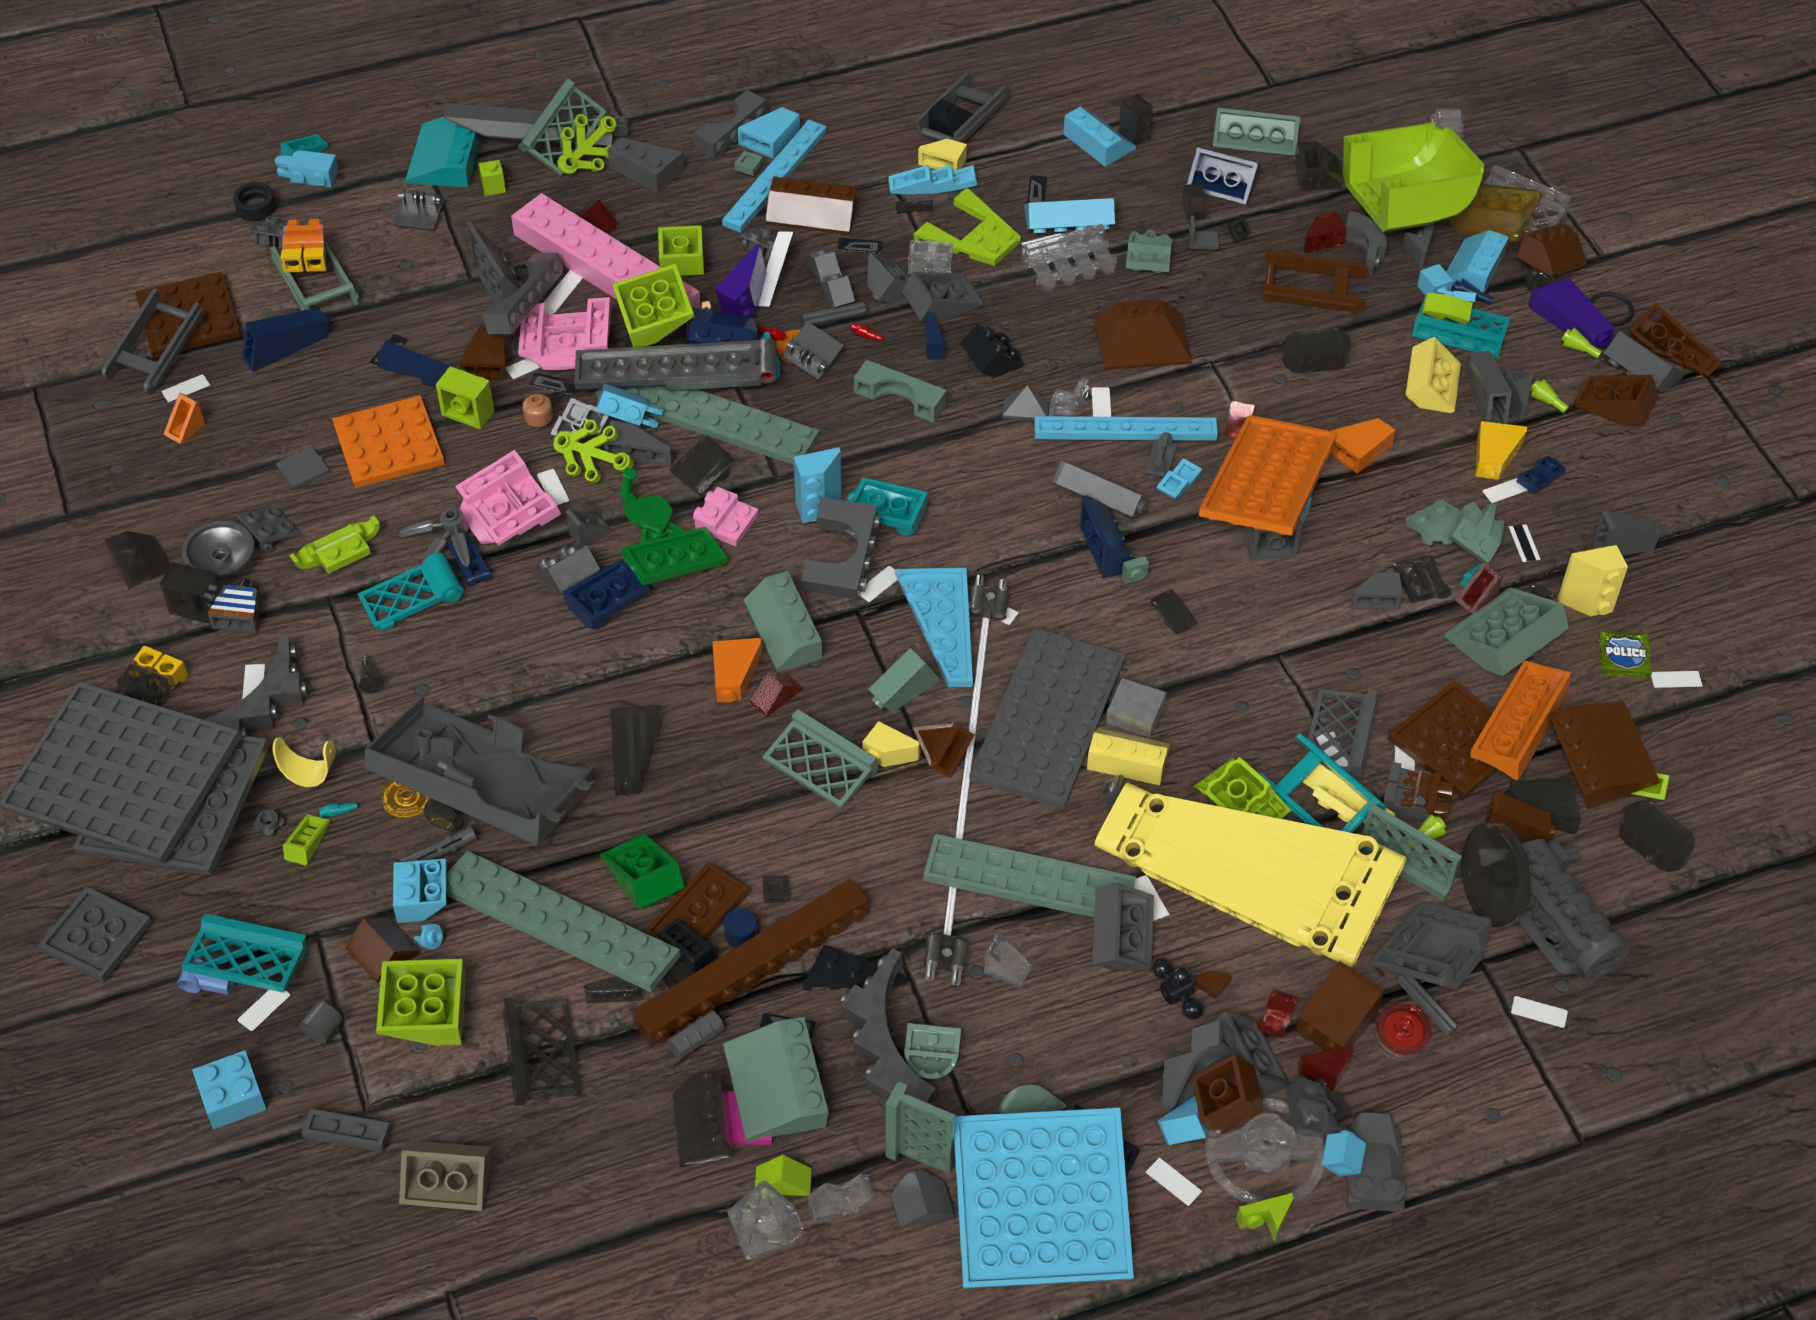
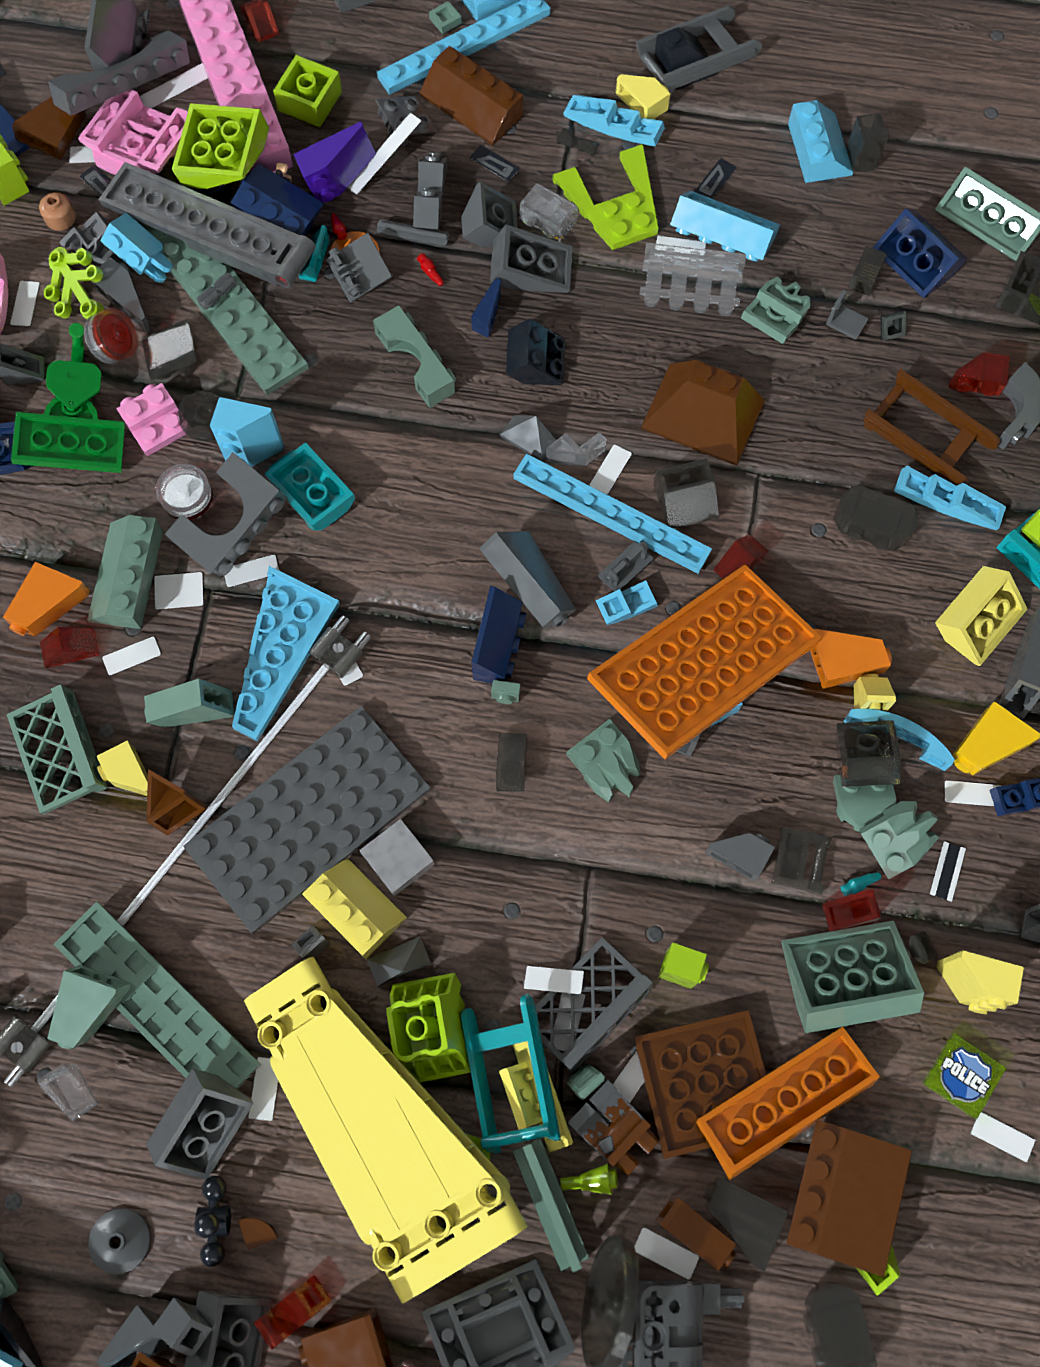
camera: 30 degrees right, 20 degrees up
(654, 471) = (111, 336): none -> clear red piece
(715, 405) = (220, 287): none -> dark grey piece
(765, 497) = (196, 415): none -> clear smoke tile
(789, 550) = (184, 491): none -> clear piece
(828, 678) = (131, 655): none -> white sticker
(833, 620) = (178, 590): none -> white sticker
(980, 896) = (84, 1004): none -> sand green slope
(1115, 1051) = (134, 1241): none -> dark grey dish
(1172, 390) = (687, 494): none -> clear smoke slope
(1185, 773) = (399, 961): none -> dark grey slope
(1241, 581) = (606, 760): none -> sand green plate
(1306, 729) = (553, 980): none -> white sticker
(1364, 318) = (953, 500): none -> medium azure slope
(1376, 774) = (585, 1081): none -> sand green slope
(1391, 670) = (683, 966): none -> lime brick
(1397, 457) = (873, 693): none -> light yellow slope
(1420, 488) = (868, 753): none -> clear smoke brick
(1460, 471) = (933, 750): none -> medium azure slope

